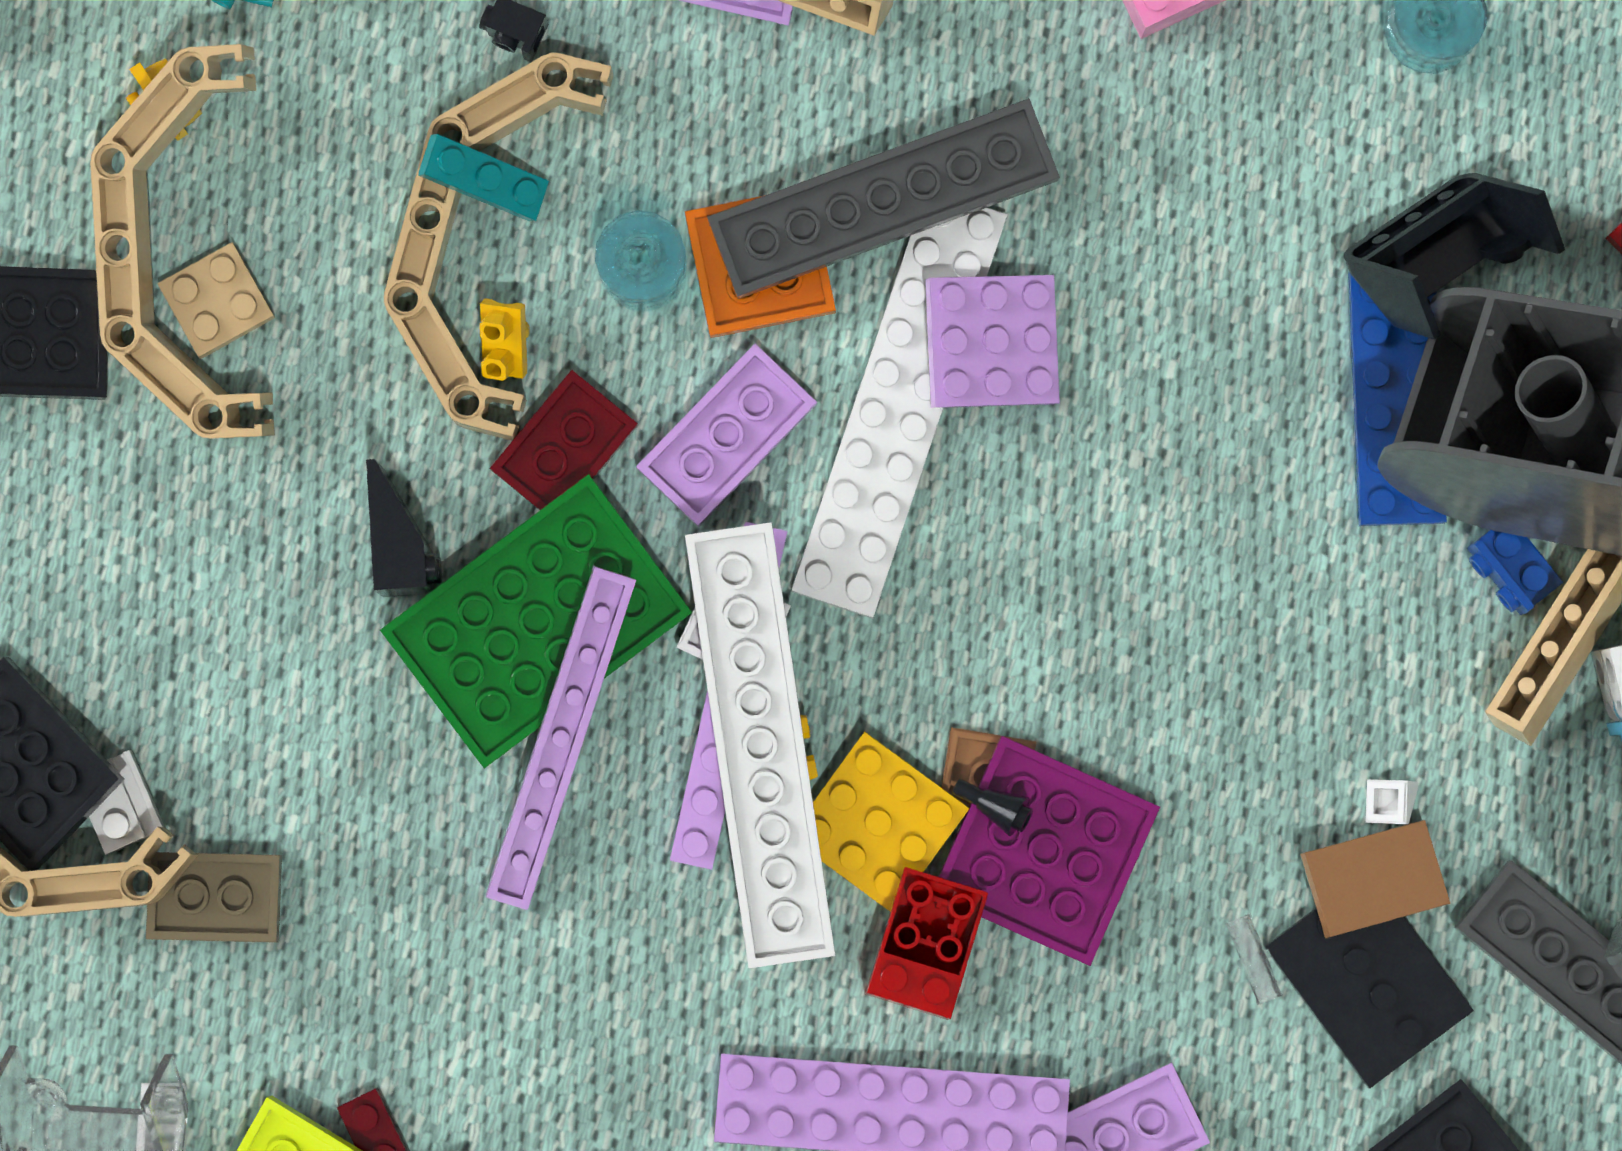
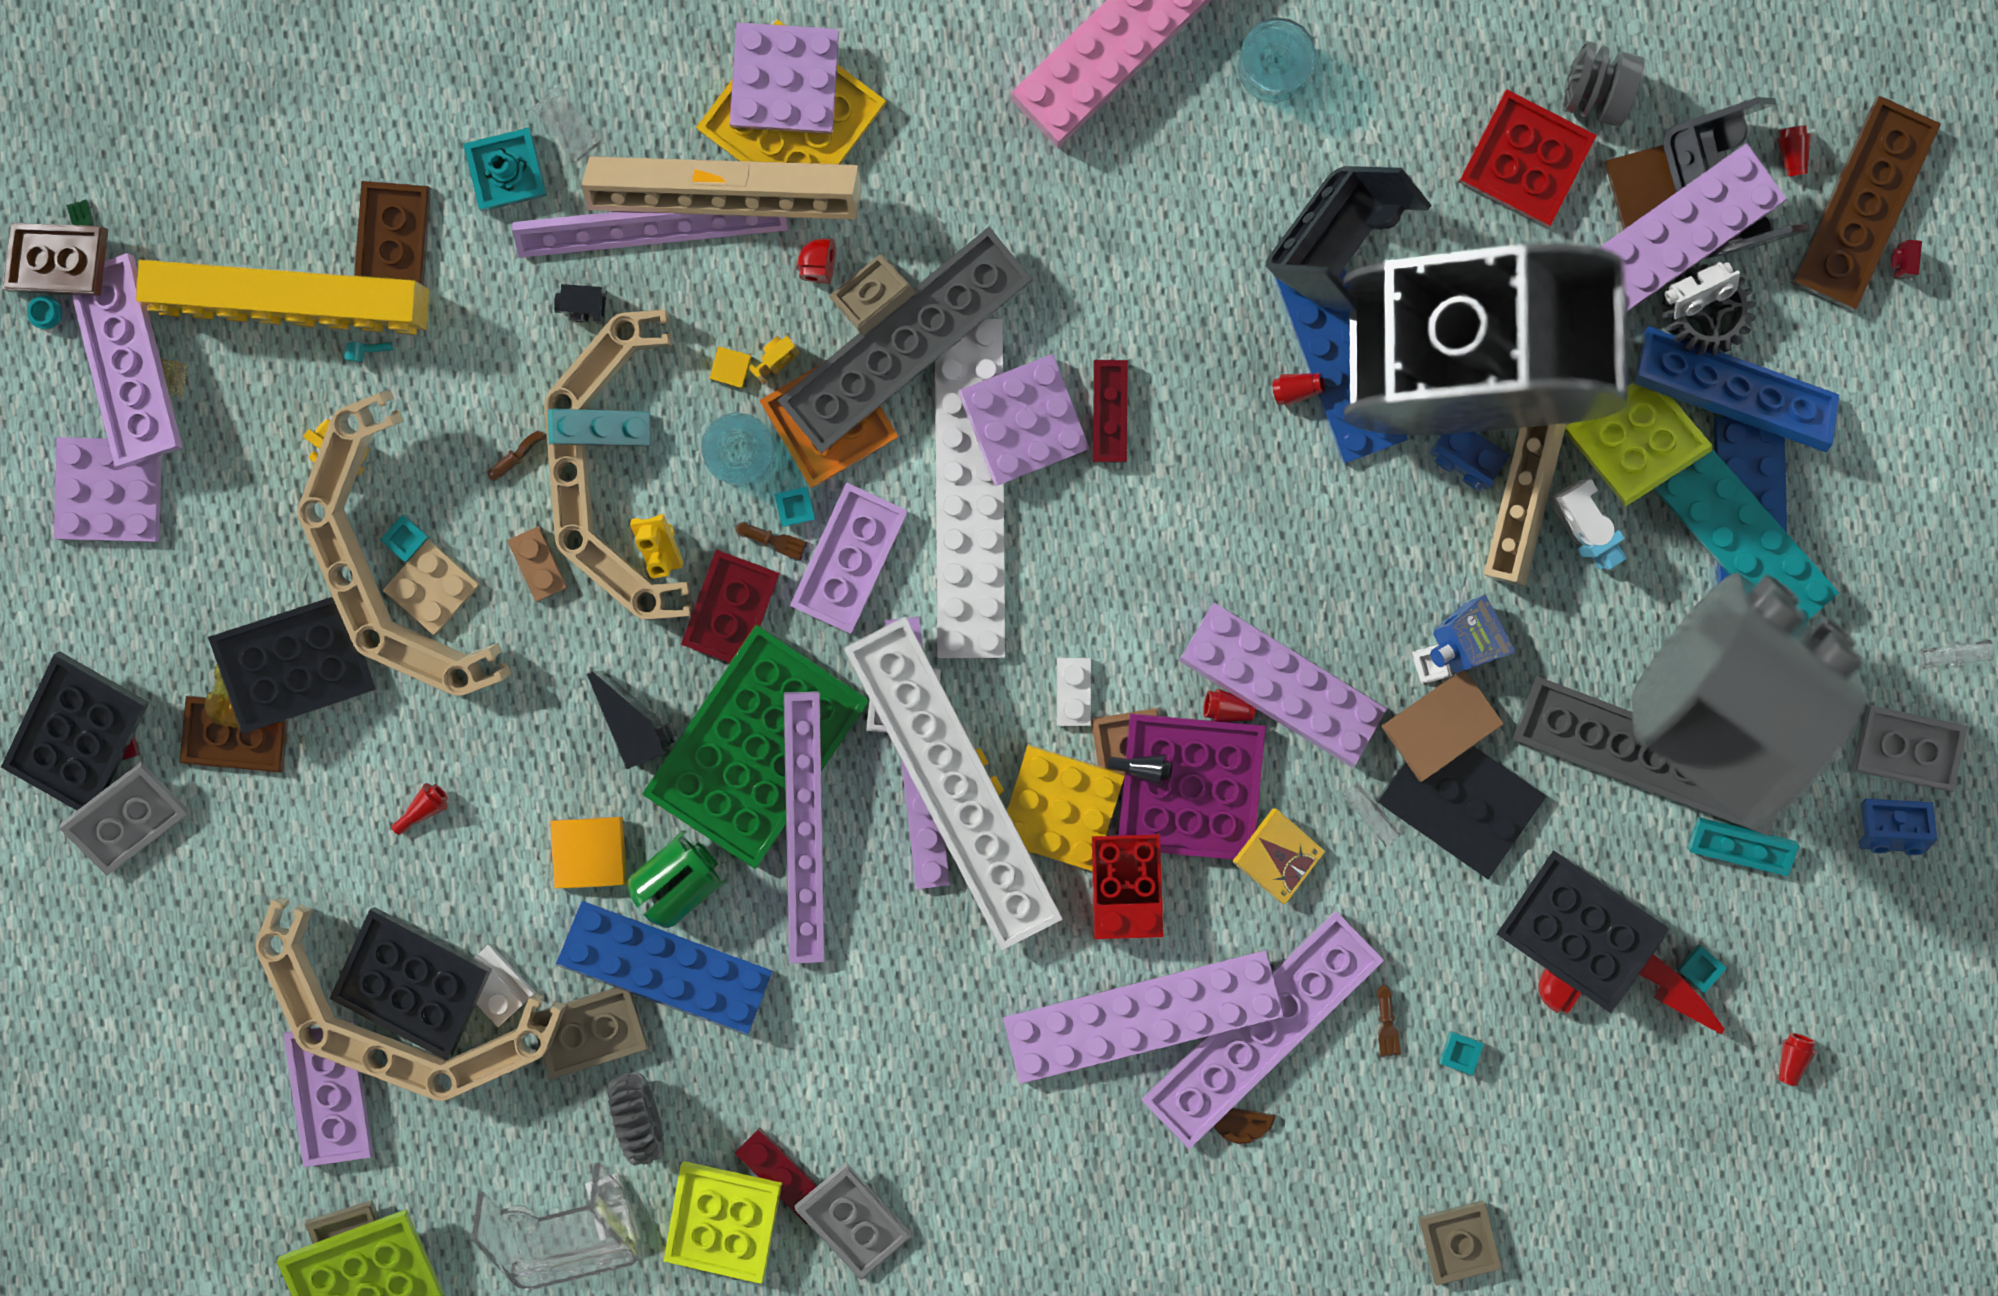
camera: 15 degrees left, 5 degrees up
(116, 555) = (426, 804): none -> red cone
(205, 231) = (404, 538): none -> teal plate
(233, 1021) = (635, 1118): none -> dark grey gear
(290, 680) = (588, 852): none -> light orange slope
(332, 851) = (664, 968): none -> blue plate
(352, 316) = (537, 564): none -> medium nougat plate
(369, 181) = (514, 458): none -> reddish brown piece
(389, 768) = (687, 894): none -> green cylinder
(653, 391) = (783, 543): none -> reddish brown piece
(663, 162) = (730, 367): none -> yellow tile
(683, 352) = (795, 506): none -> teal plate
(724, 166) = (777, 355): none -> yellow plate
(810, 72) = (817, 261): none -> red piece
(862, 132) = (872, 294): none -> dark tan tile
(941, 687) = (1073, 691): none -> white plate
(1099, 367) = (1110, 411): none -> dark red plate
(1122, 769) = (1224, 707): none -> red cone
(1123, 971) = (1278, 856): none -> yellow tile
(1198, 765) = (1282, 685): none -> lavender plate
(1332, 414) = (1296, 388): none -> red cone
(1444, 785) = (1470, 637): none -> blue torso

